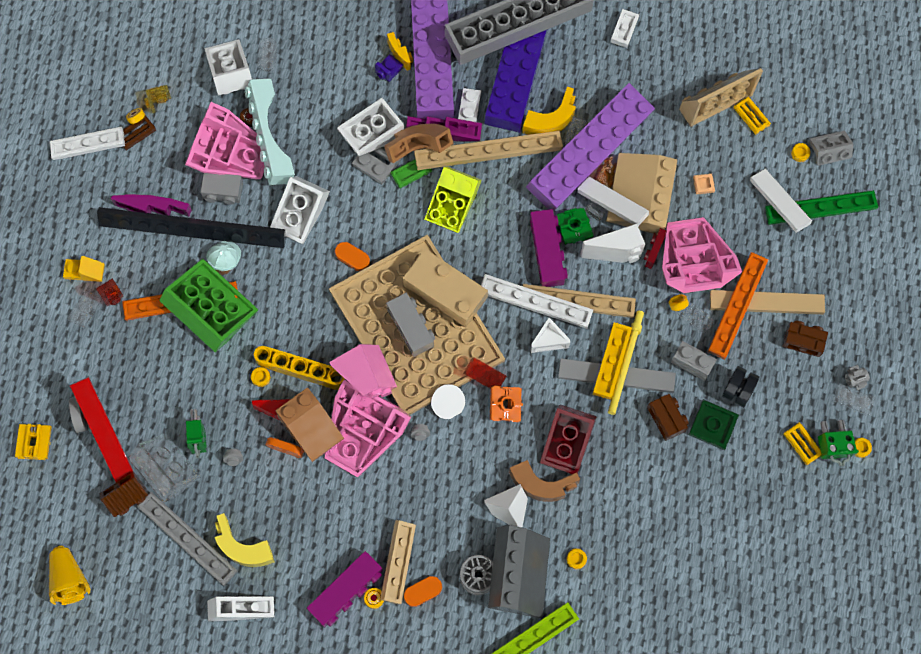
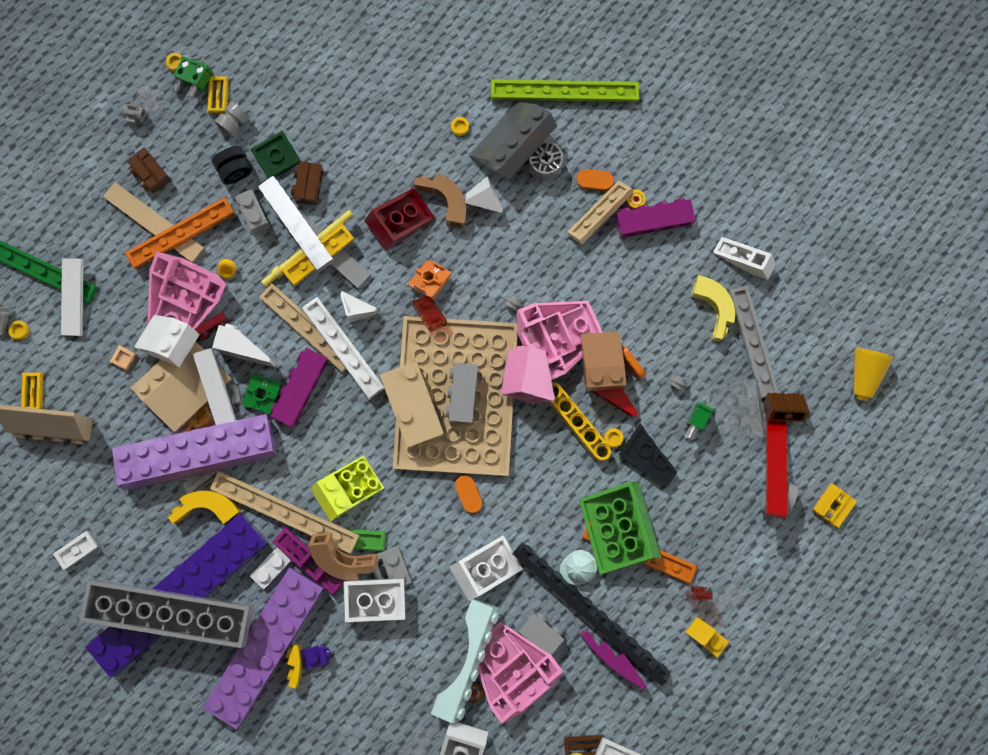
camera: 150 degrees left, 10 degrees up
(222, 378) = (647, 457): none -> black wing
(448, 401) = (474, 313): white sticker -> none
(650, 373) = (296, 224): none -> tile
(677, 209) = (167, 339): none -> white slope
(772, 427) = (232, 119): none -> light grey wheel

